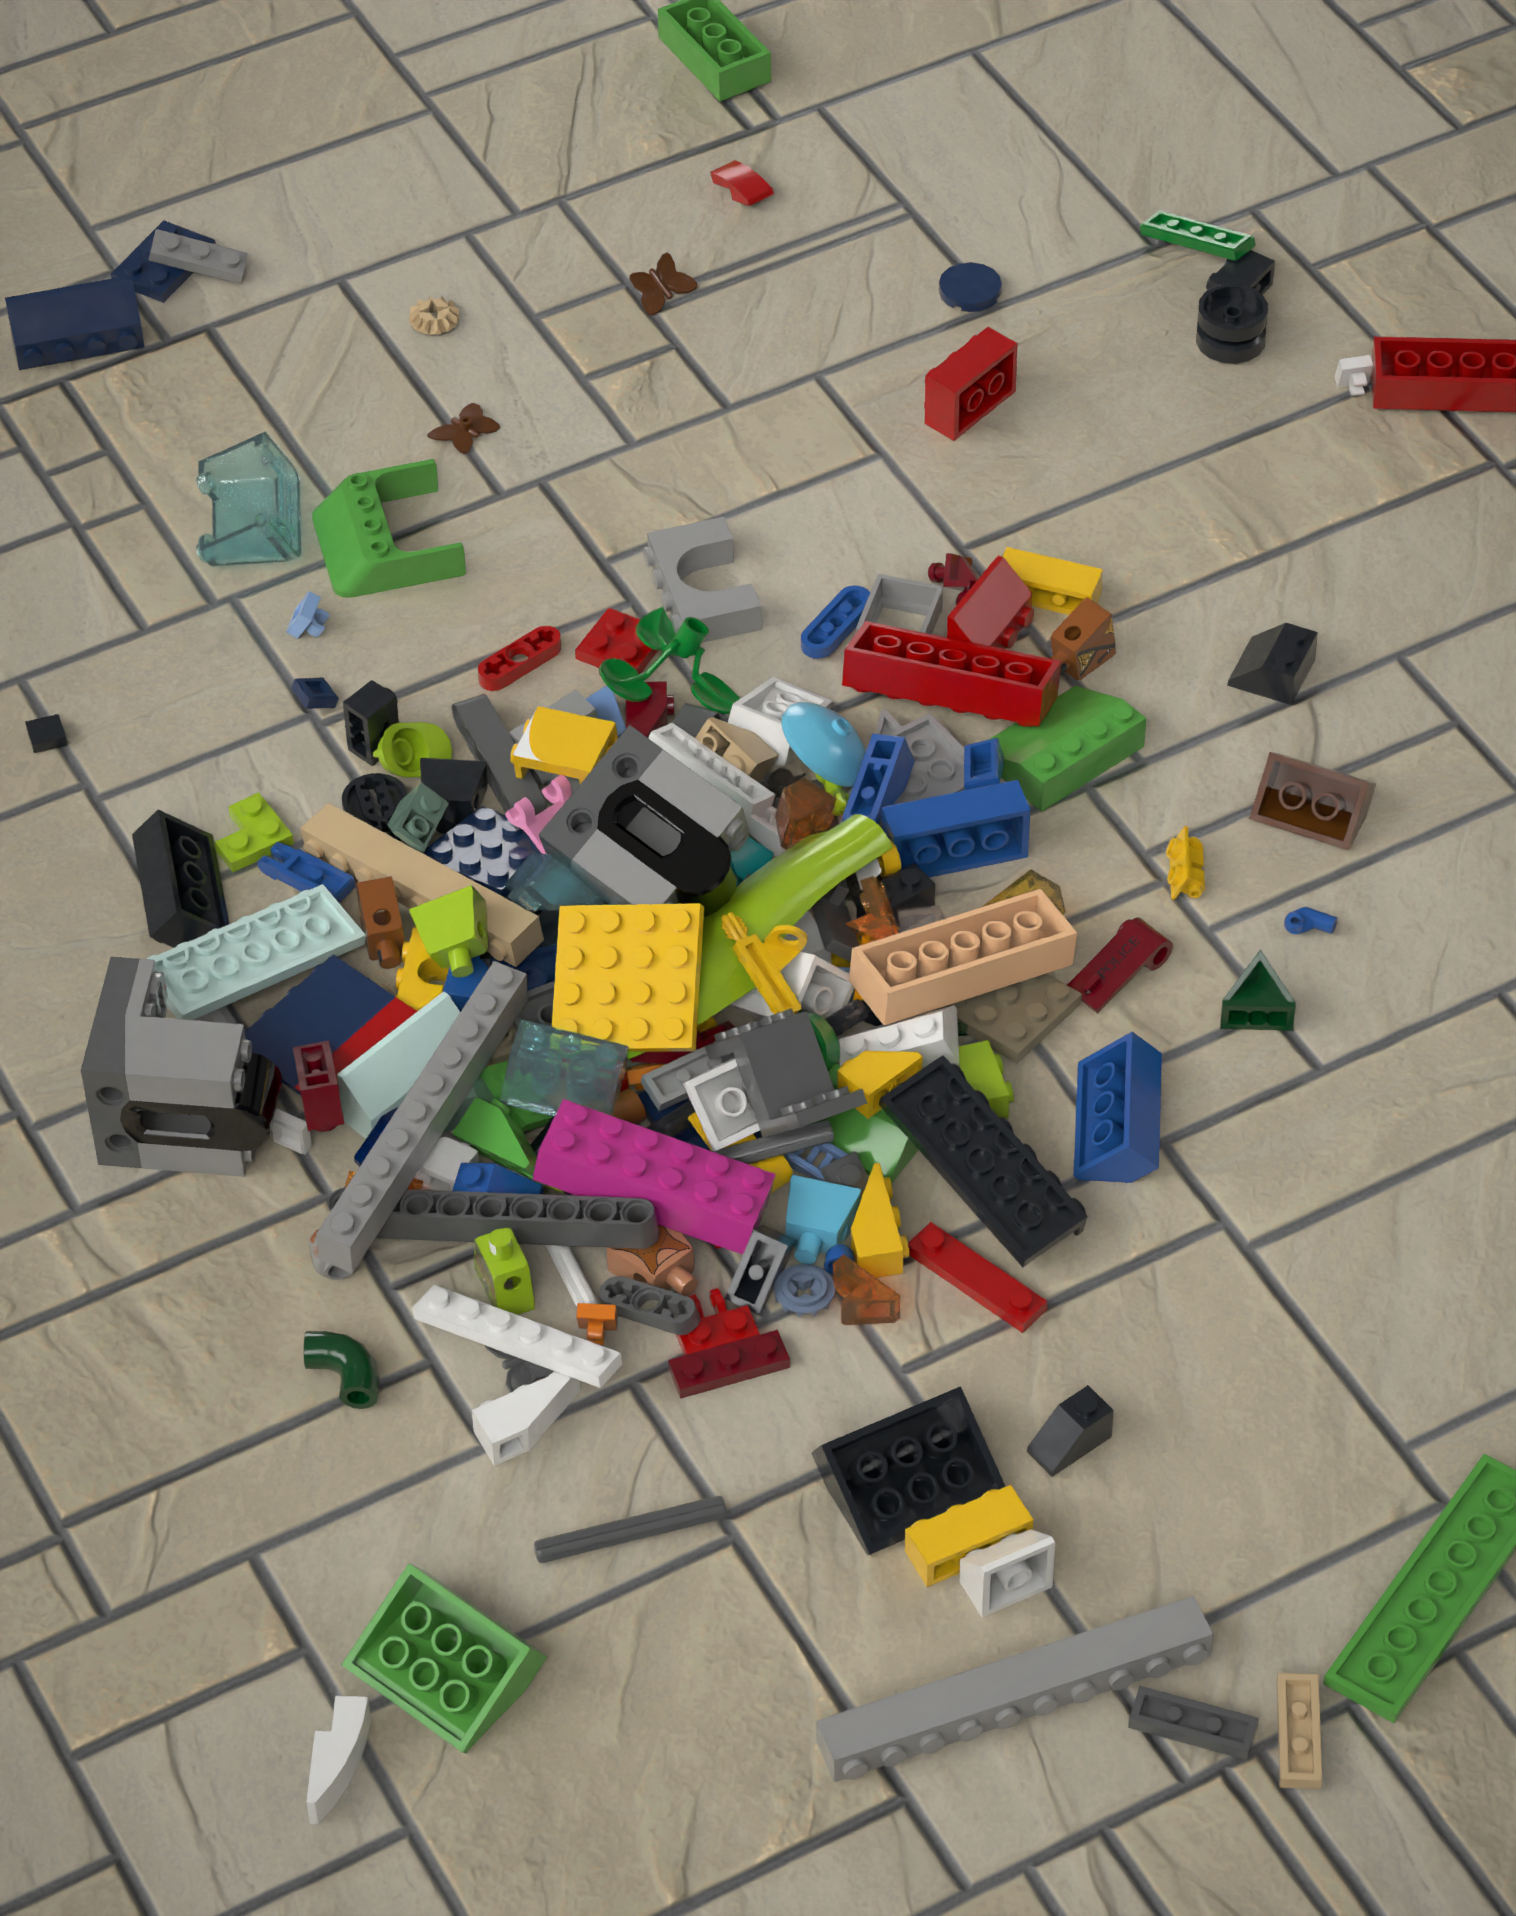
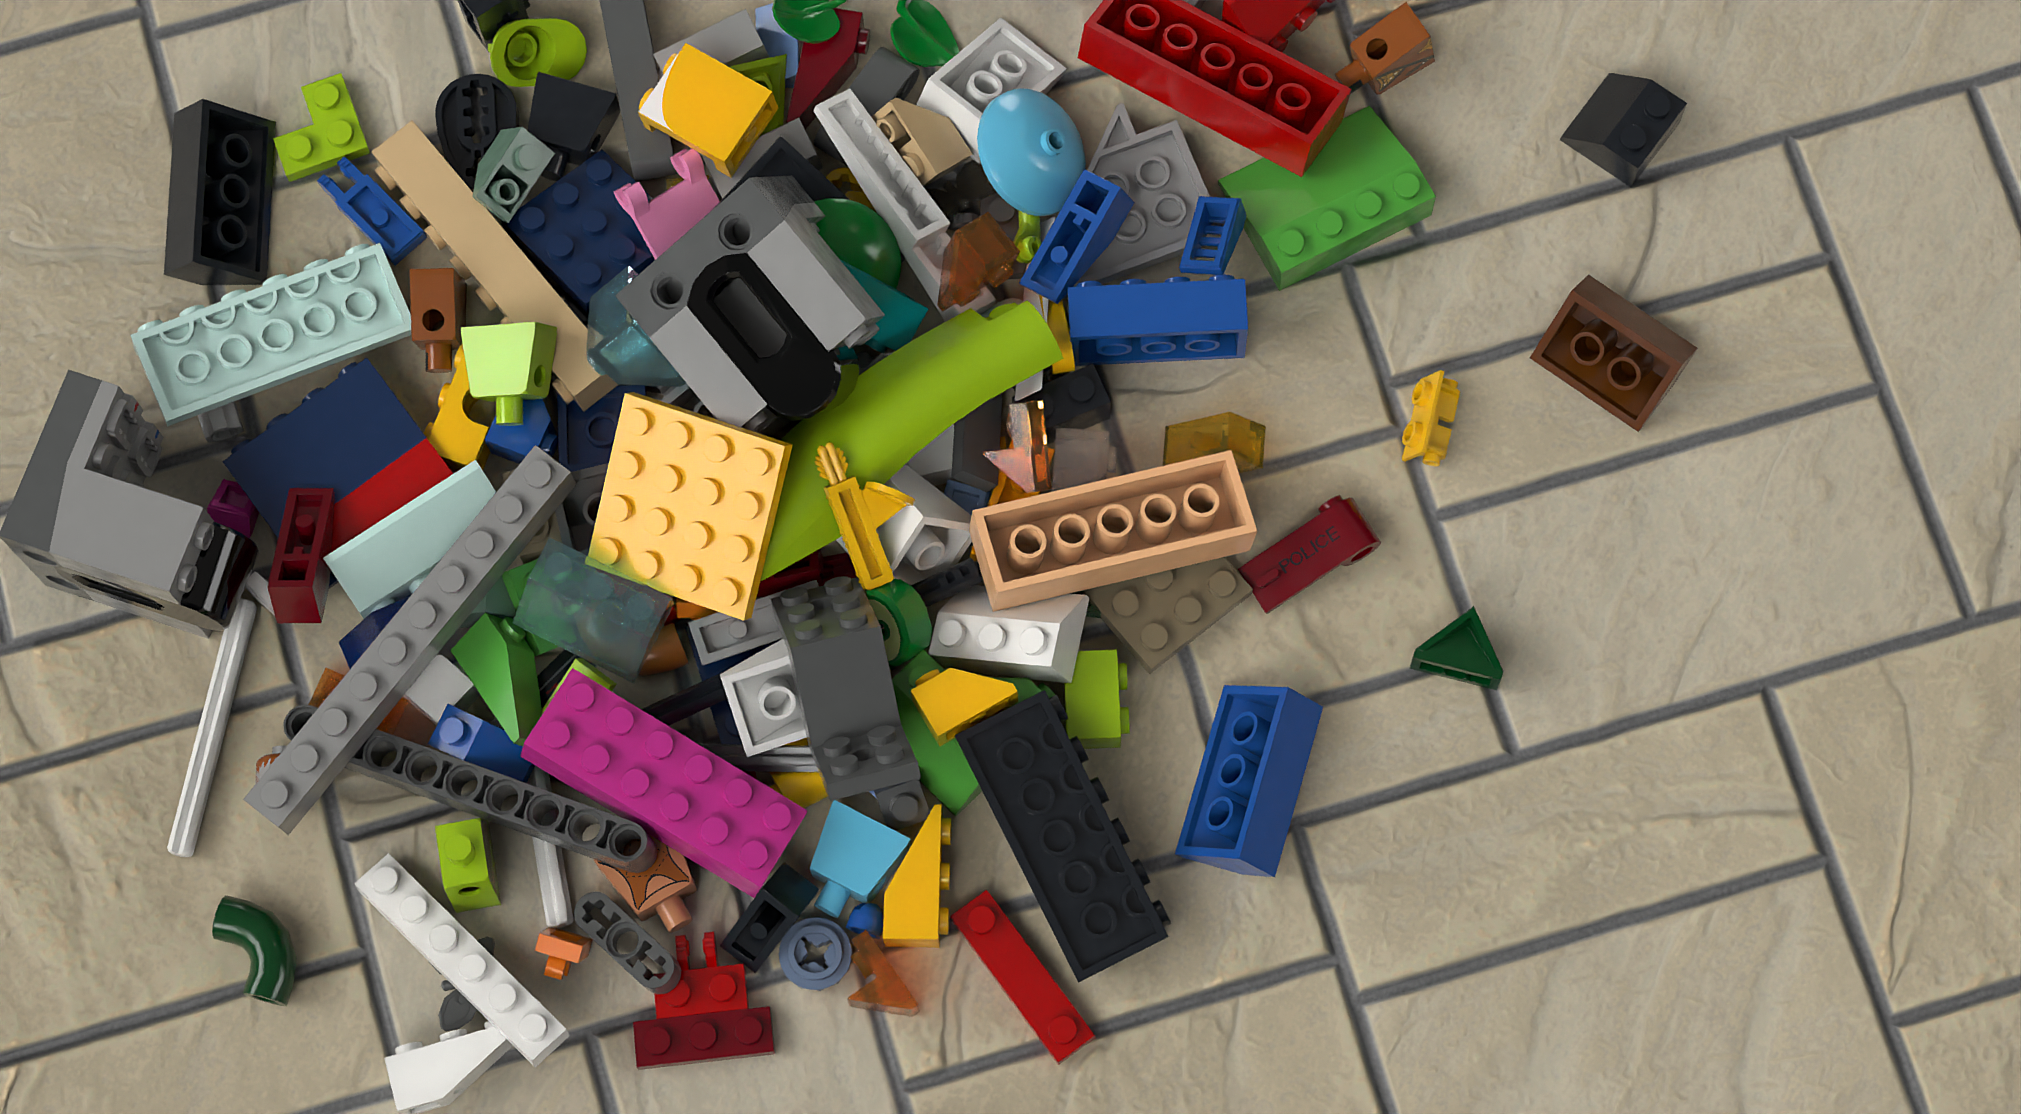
camera: 15 degrees right, 25 degrees up
(264, 1232) = (211, 731): none -> white axle
(1308, 919) = (1559, 531): blue arm -> none

